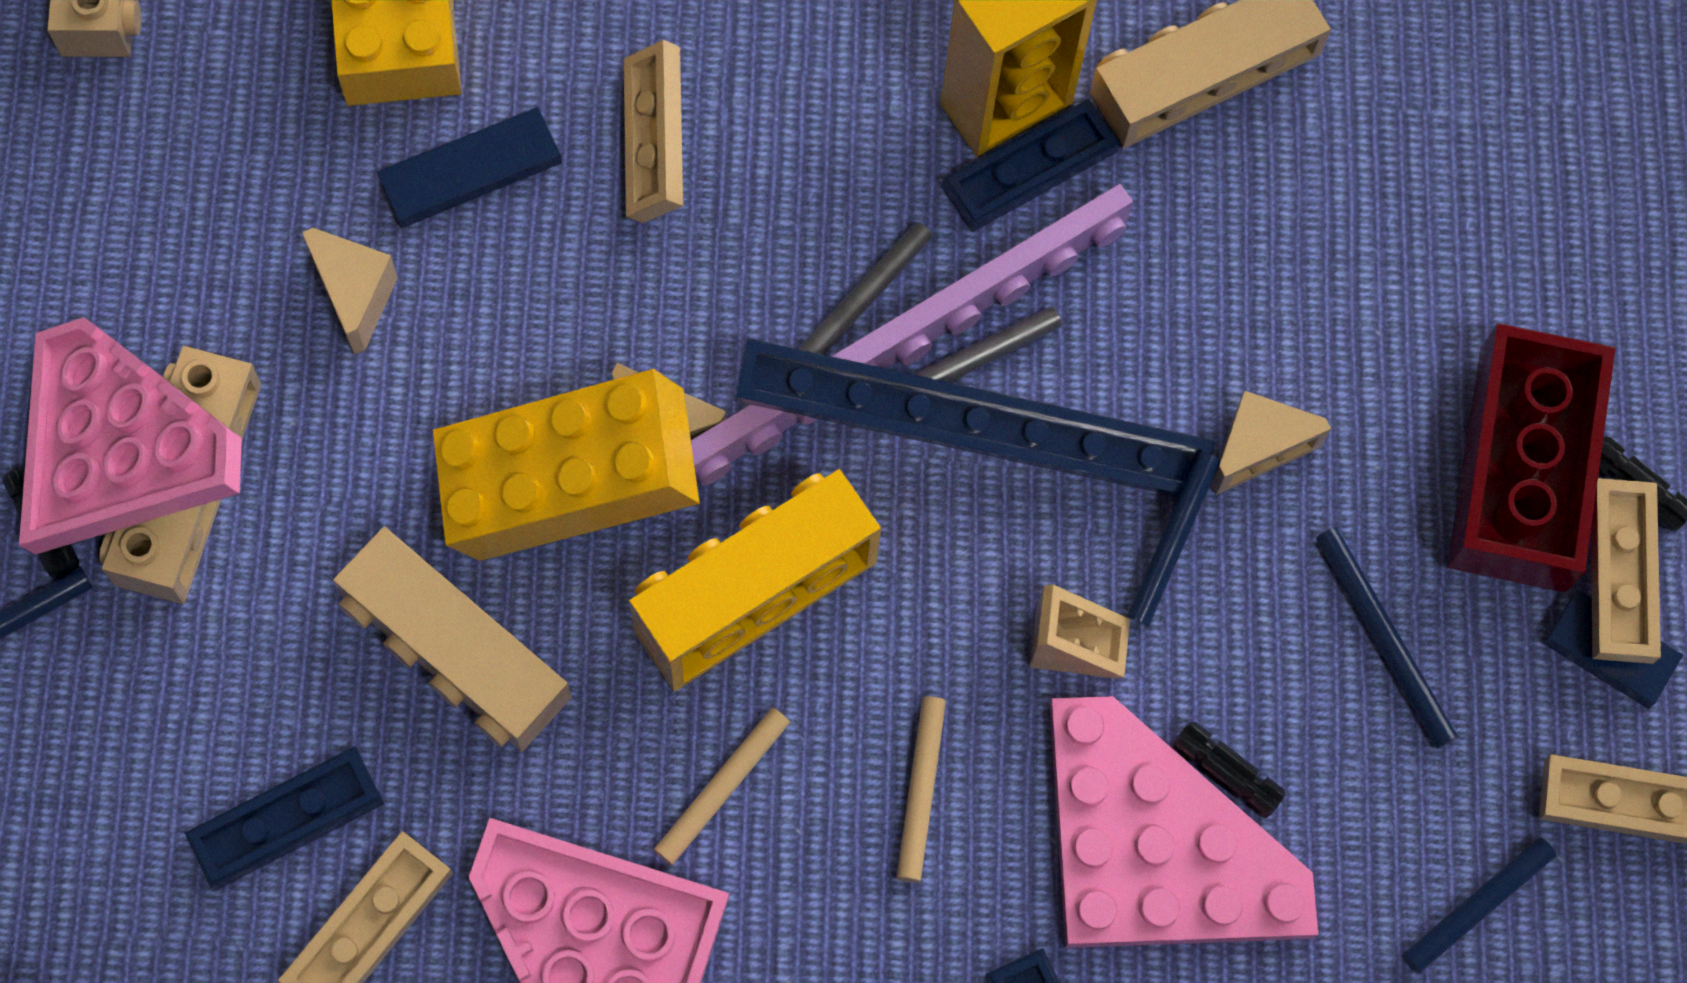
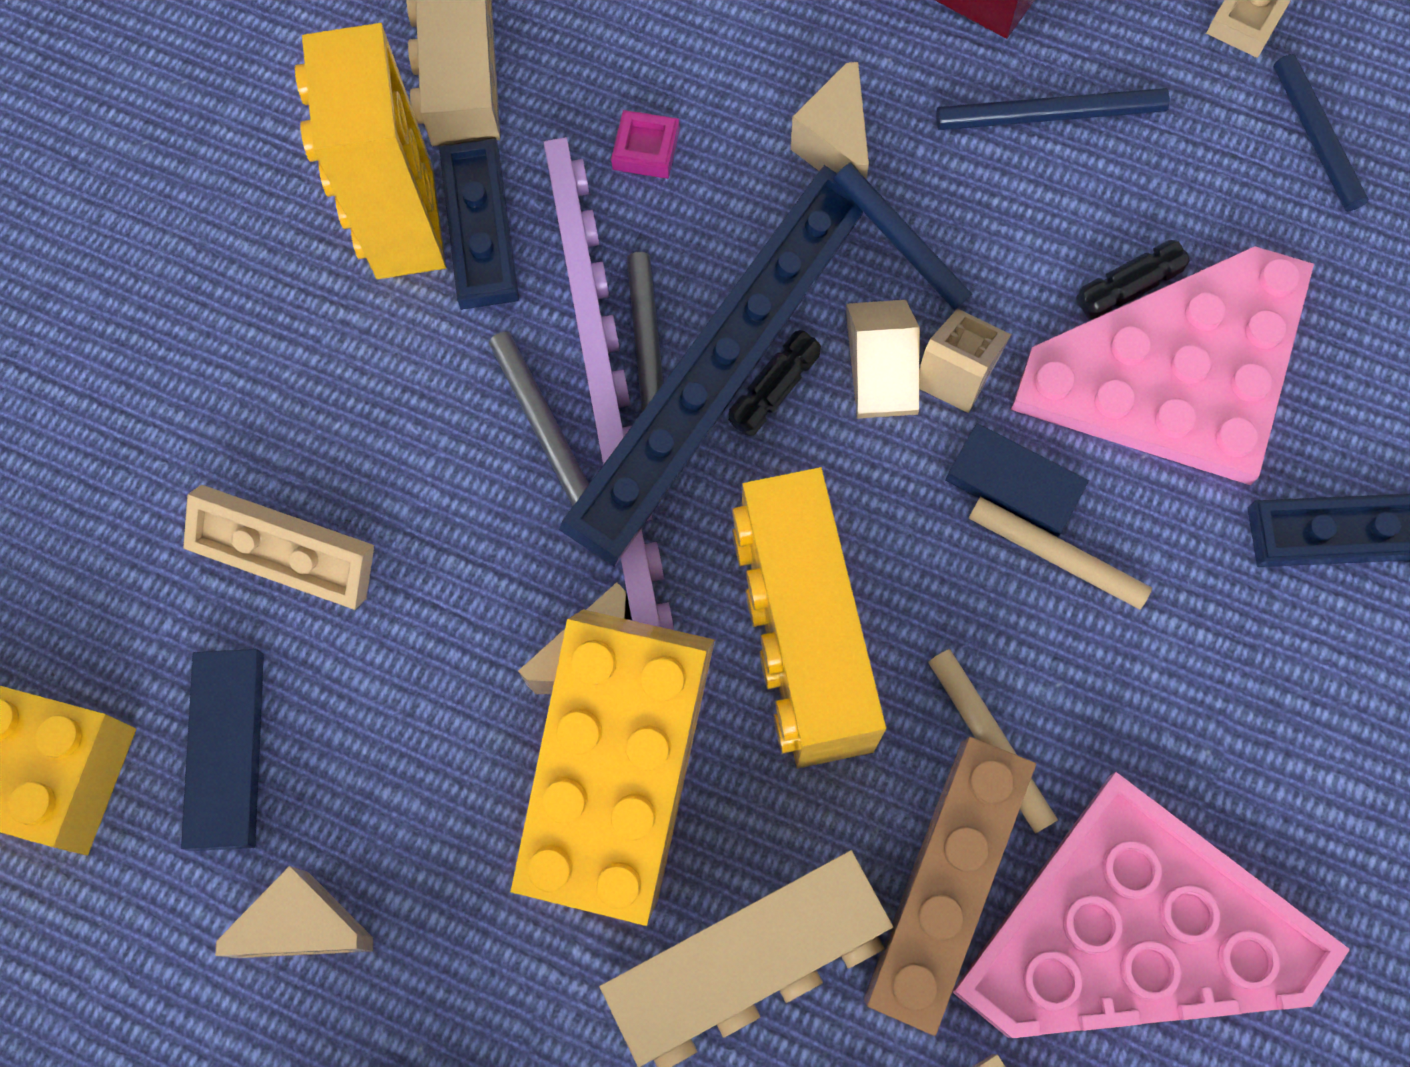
camera: 60 degrees left, 0 degrees up
(574, 777) = (949, 885): none -> medium nougat brick
(975, 728) = (1017, 480): none -> dark blue tile
(981, 481) = (774, 383): none -> black axle
(1053, 553) = (884, 358): none -> slope
(1177, 277) = (645, 144): none -> dark pink tile

